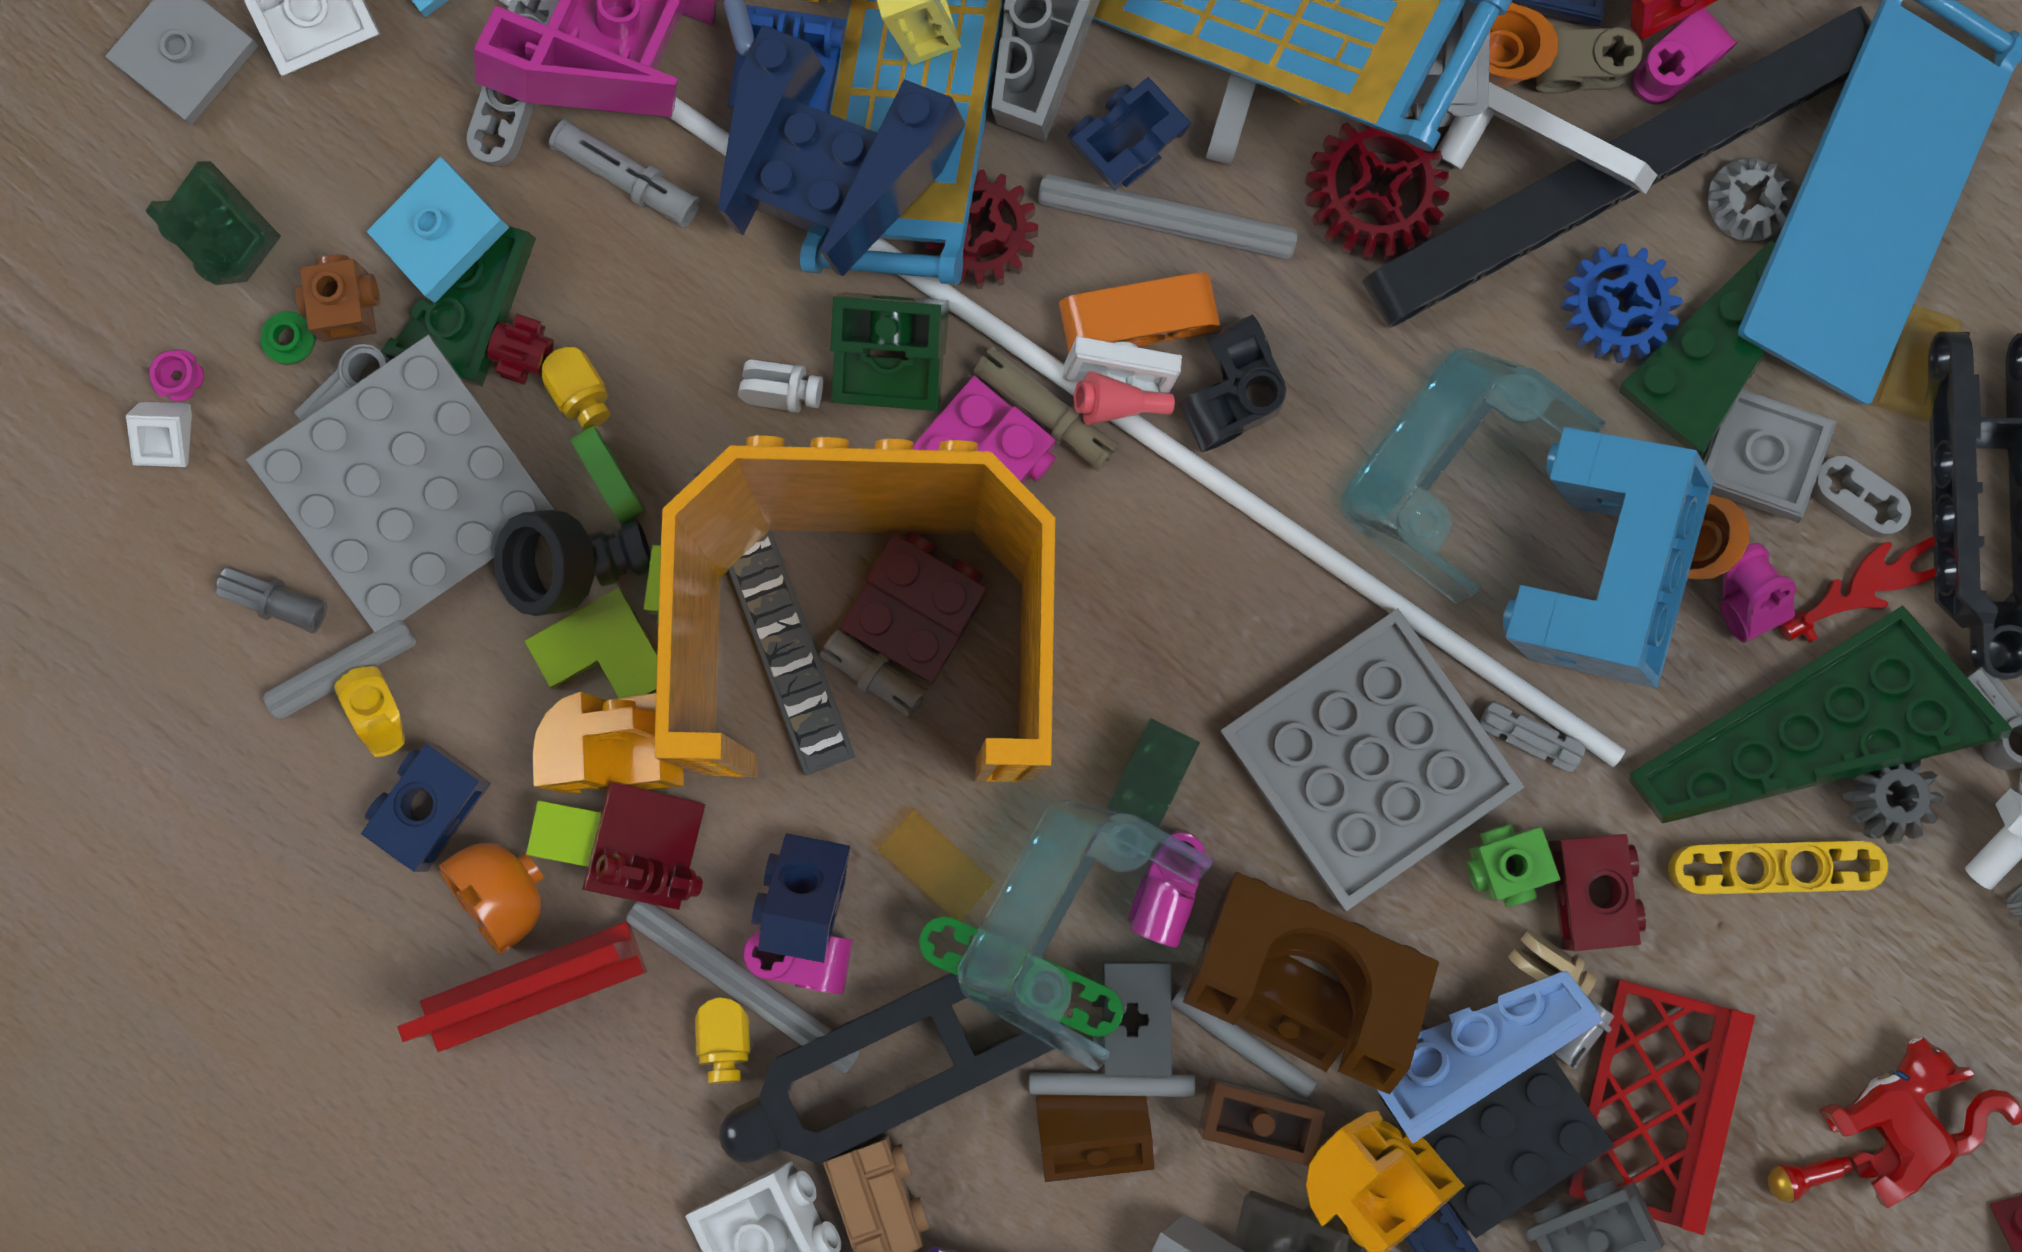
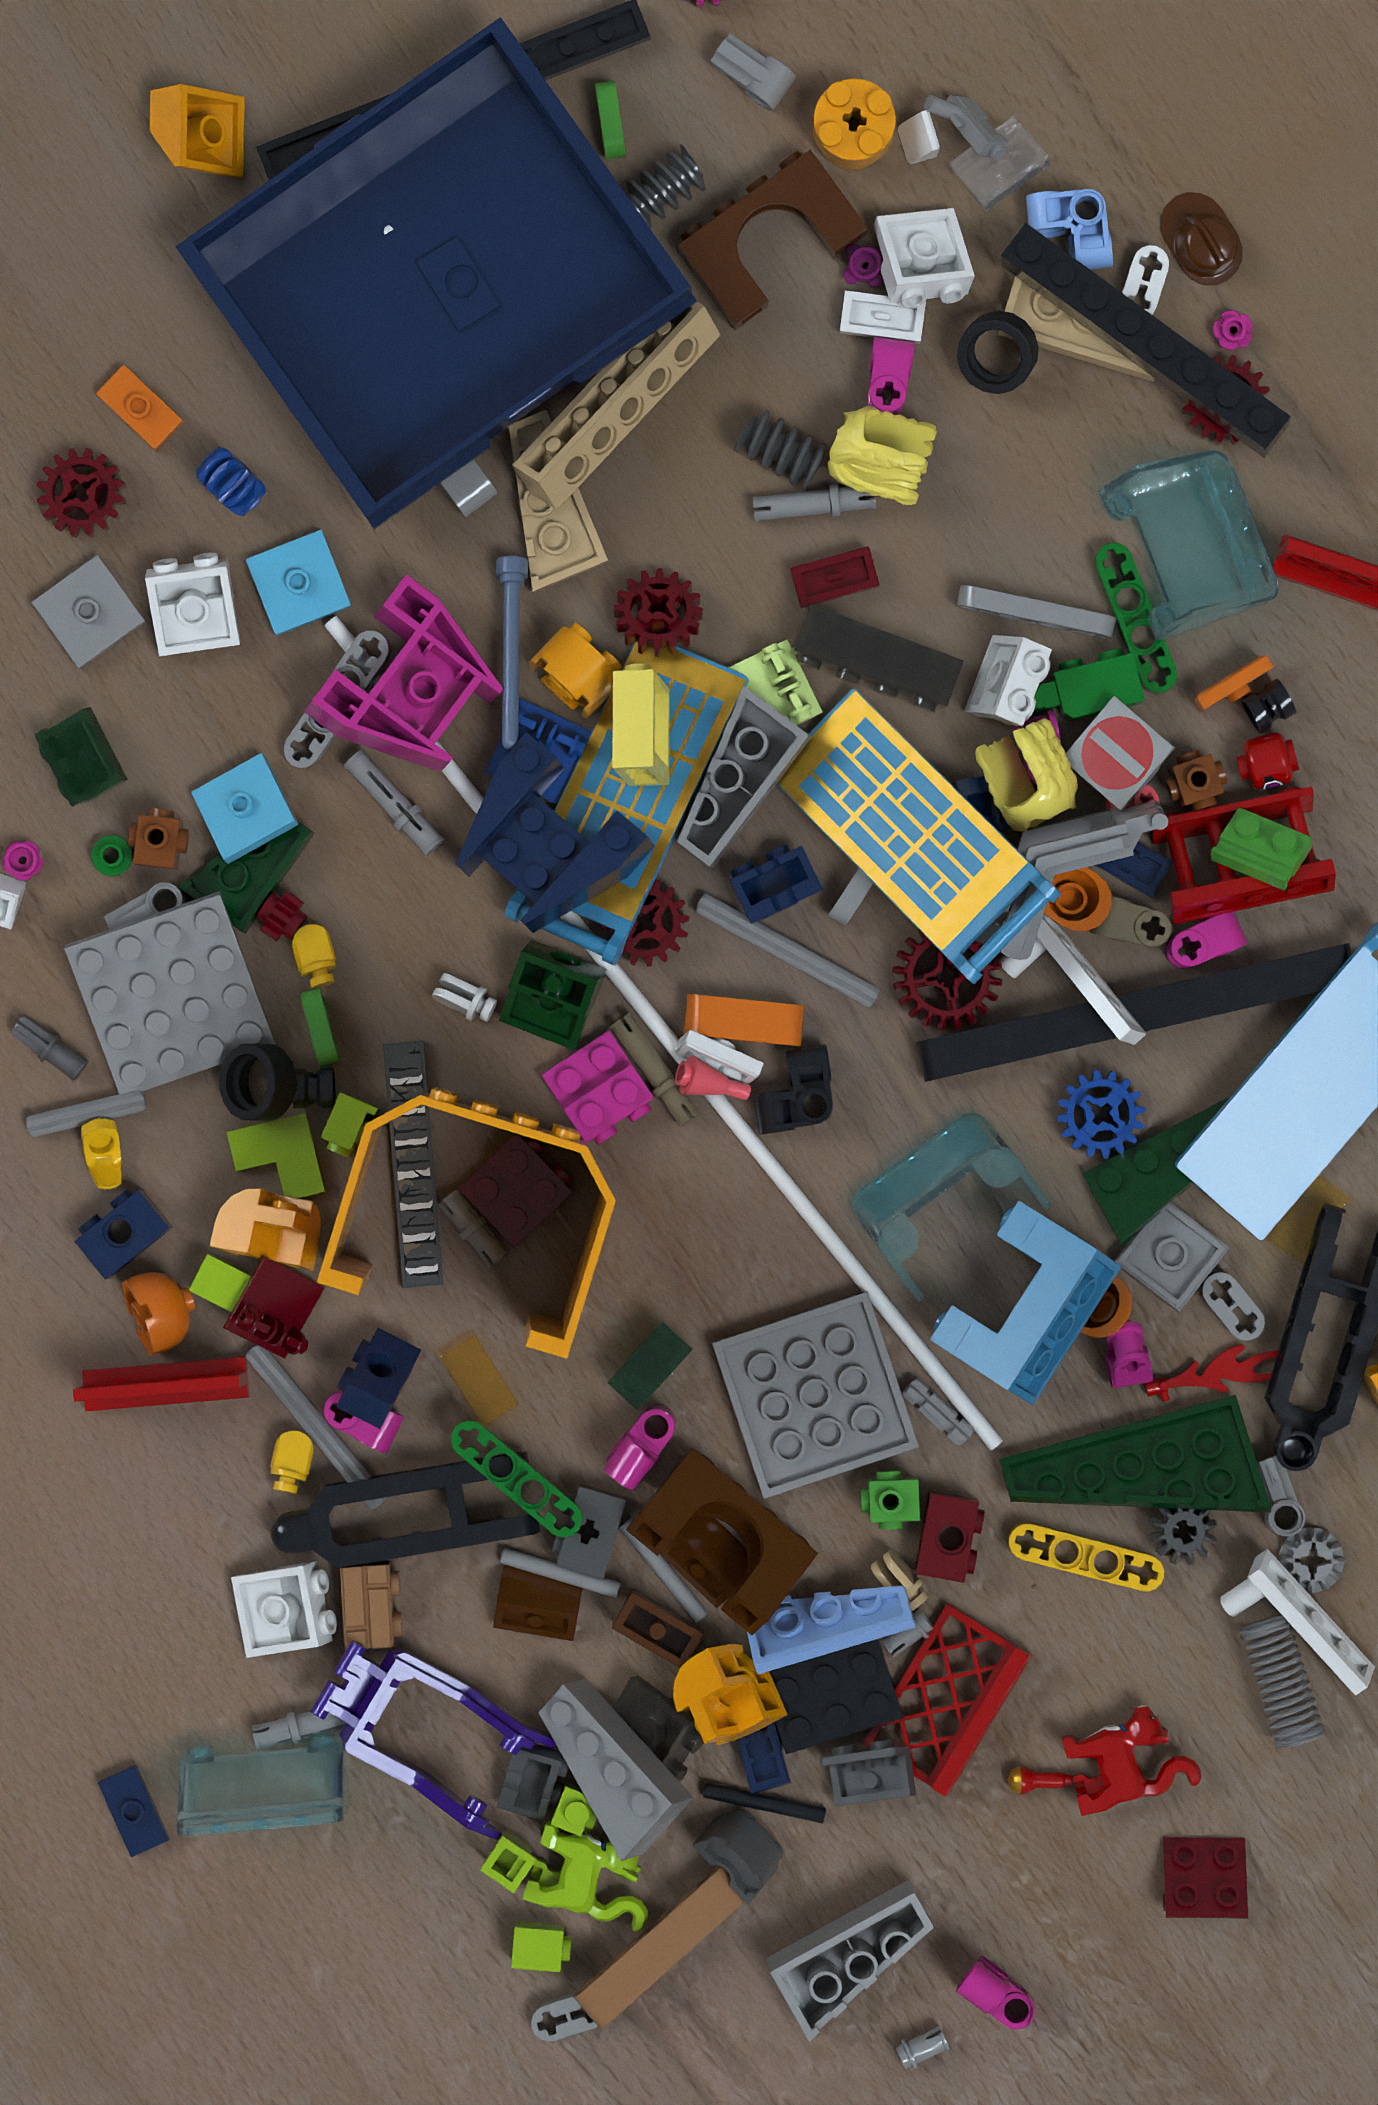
camera: 15 degrees right, 5 degrees up
(1004, 958) = (507, 1463): clear light blue windscreen -> none
(1727, 200) = (1205, 1058): light grey gear -> none

